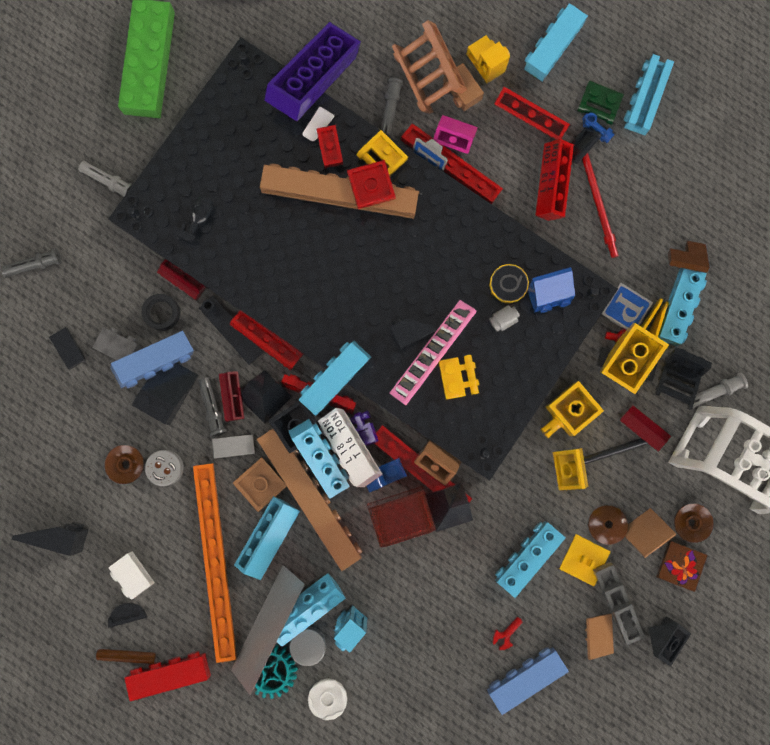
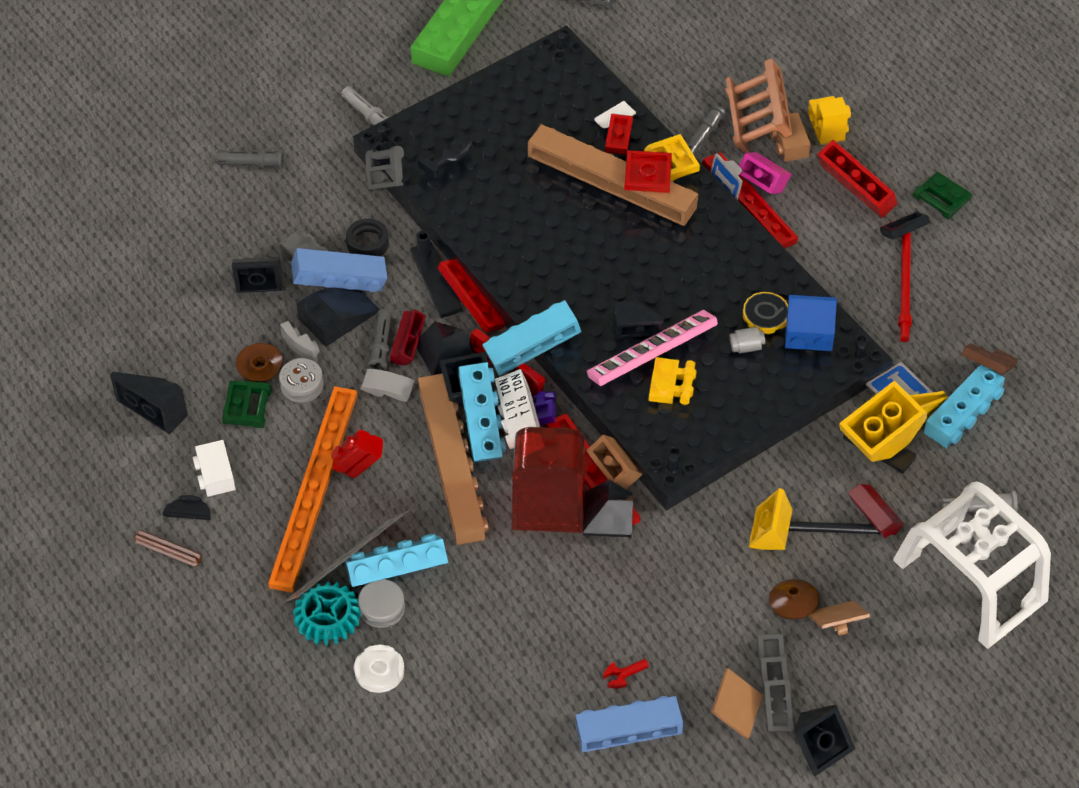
camera: 25 degrees right, 30 degrees down
(67, 348) = (250, 241): black tile -> none
(86, 380) = (257, 274): none -> black slope
(124, 507) = (239, 401): none -> dark green plate
(143, 248) = (379, 179): none -> dark grey plate
(155, 436) = (299, 344): none -> light grey slope
(167, 676) = (206, 579): red brick -> none
(181, 279) = (402, 217): dark red piece -> none
(238, 529) = (357, 453): none -> red brick
(260, 484) = (401, 429): medium nougat plate -> none
(266, 539) = (385, 478): medium azure brick -> none
(312, 71) = (629, 67): dark purple brick -> none
(349, 629) = (442, 575): medium azure brick -> none
(529, 559) = (683, 598): medium azure brick -> none
(554, 180) = (859, 244): red brick -> none
(555, 42) = (910, 125): medium azure brick -> none
(564, 418) = (793, 463): yellow brick -> none
(583, 558) = (746, 624): yellow piece -> none
(590, 121) = (924, 206): blue bar -> none
(648, 95) = (999, 201): medium azure brick -> none
(682, 566) = (869, 671): reddish brown tile -> none
(686, 368) = (941, 469): black plate -> none
(703, 523) = (900, 616): reddish brown dish -> none

